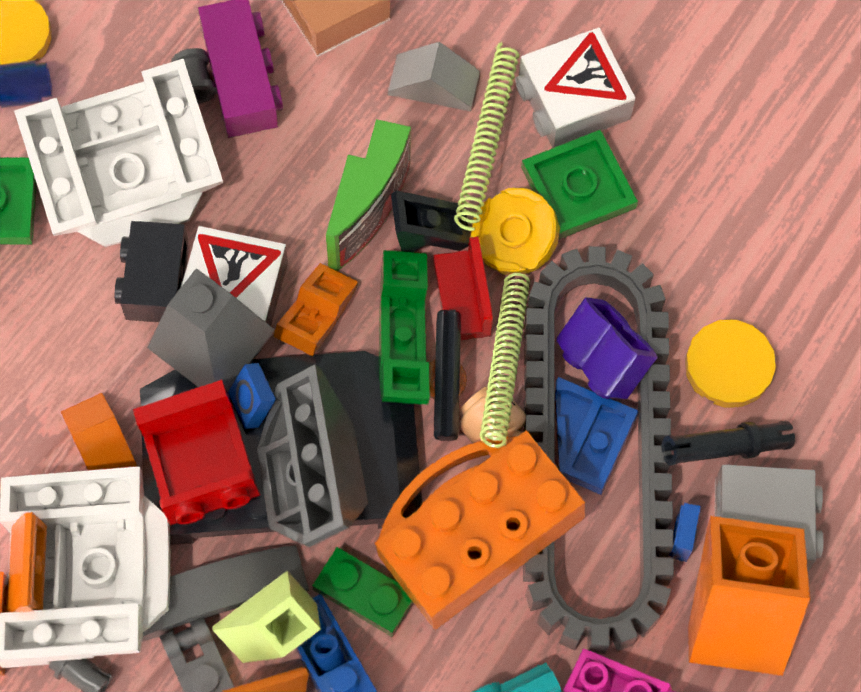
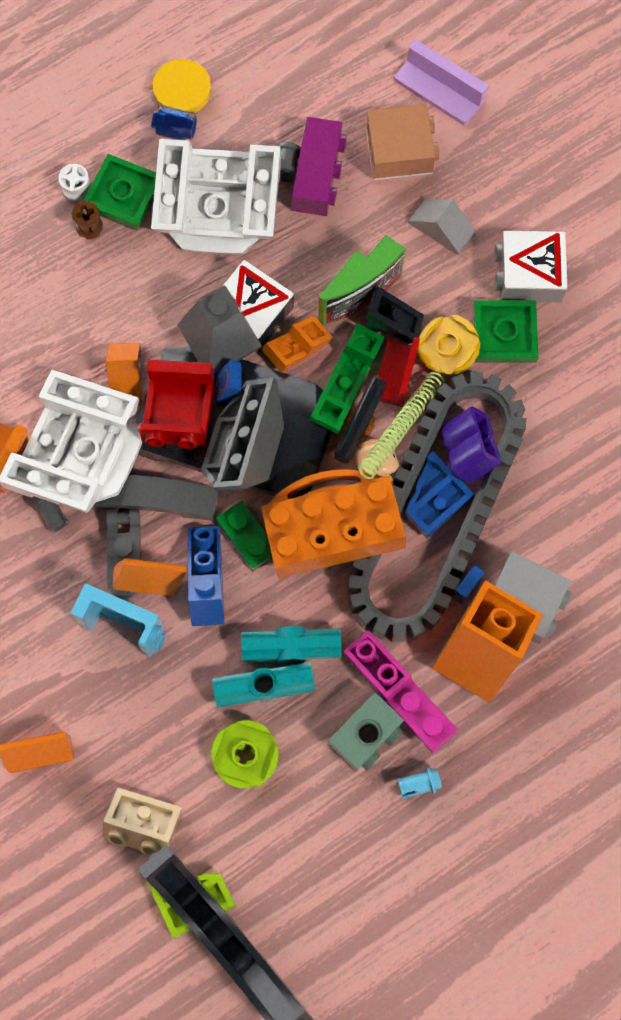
camera: 25 degrees right, 5 degrees up
(27, 564) = (44, 430): orange slope -> none
(153, 269) = (205, 272): black brick -> none
(270, 621) = (178, 528): yellowish green slope -> none
(493, 75) = (461, 263): yellowish green piece -> none
(730, 363) = (551, 489): yellow tile -> none
(744, 440) = (535, 542): black pin -> none

